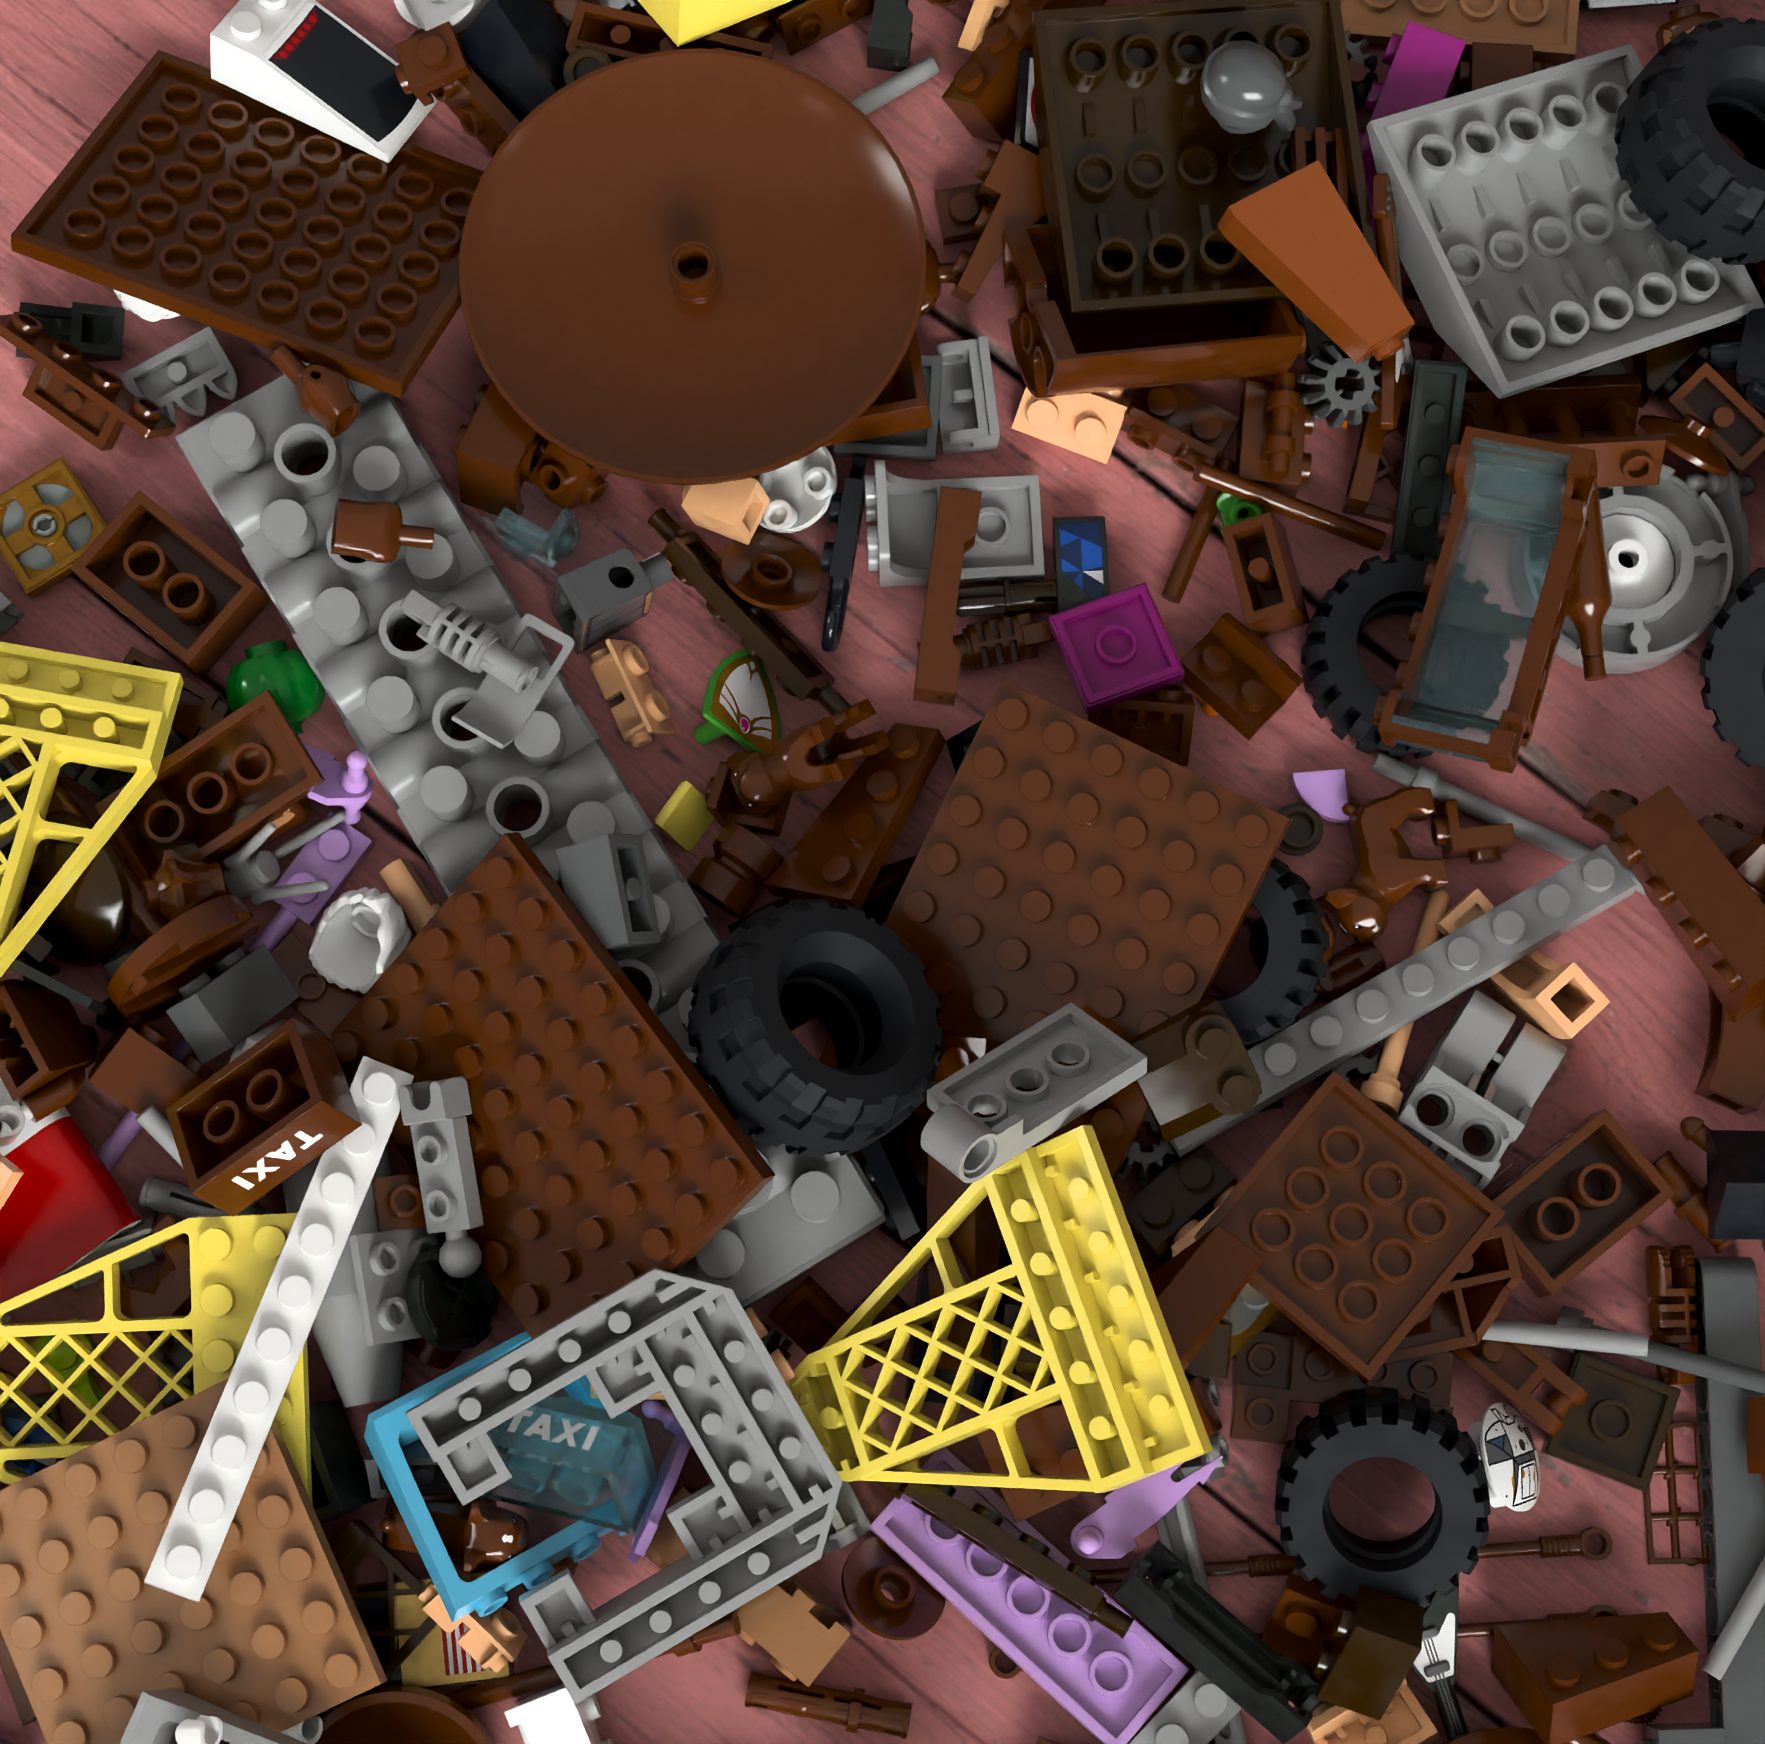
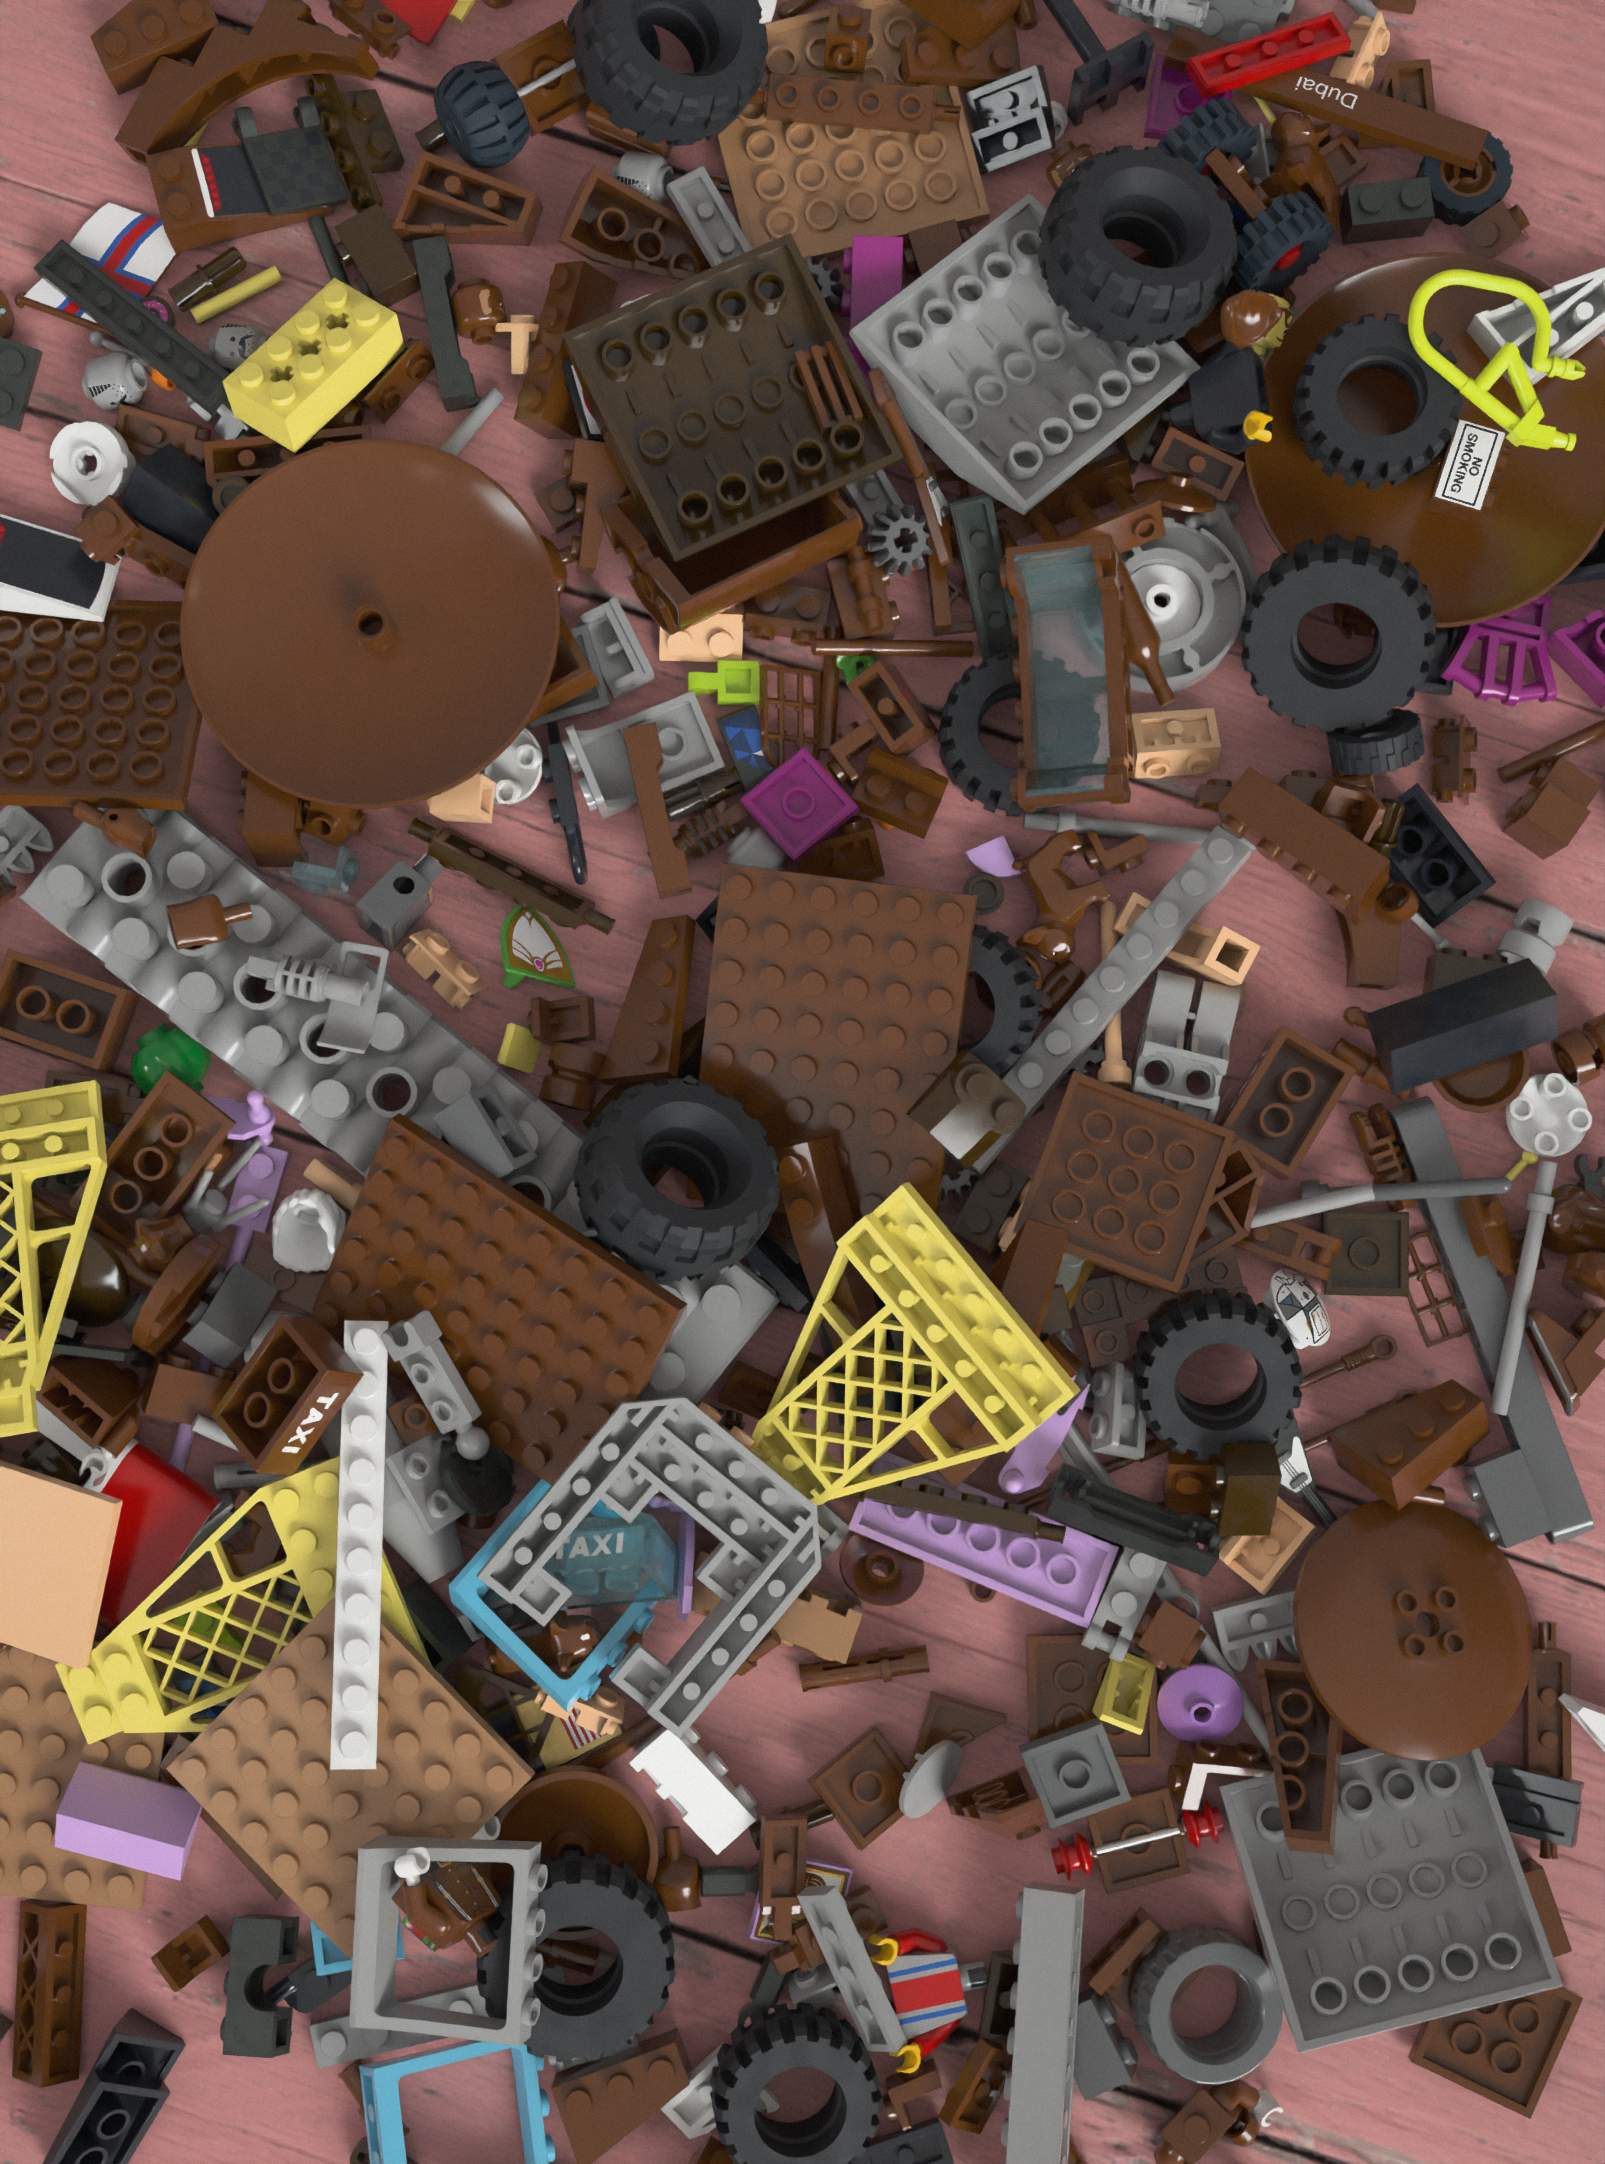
camera: 20 degrees left, 5 degrees up
(772, 572) = (517, 838): reddish brown dish -> none
(804, 759) = (594, 975): reddish brown animal -> none
(978, 1145) = (829, 1228): light grey hinge -> none
(1047, 680) = (755, 849): none -> light grey head
(1088, 483) = (734, 682): none -> lime plate
(1135, 524) = (799, 705): none -> reddish brown window
(1203, 599) = (852, 742): none -> reddish brown bracket
(1242, 1510) = (1116, 1420): none -> light grey bracket
(1247, 88) = (748, 338): dark grey hat -> none
(1320, 261) = (851, 455): dark orange slope -> none
(1357, 72) = (826, 288): reddish brown piece -> none
(1586, 734) = (1175, 743): none -> light nougat bracket

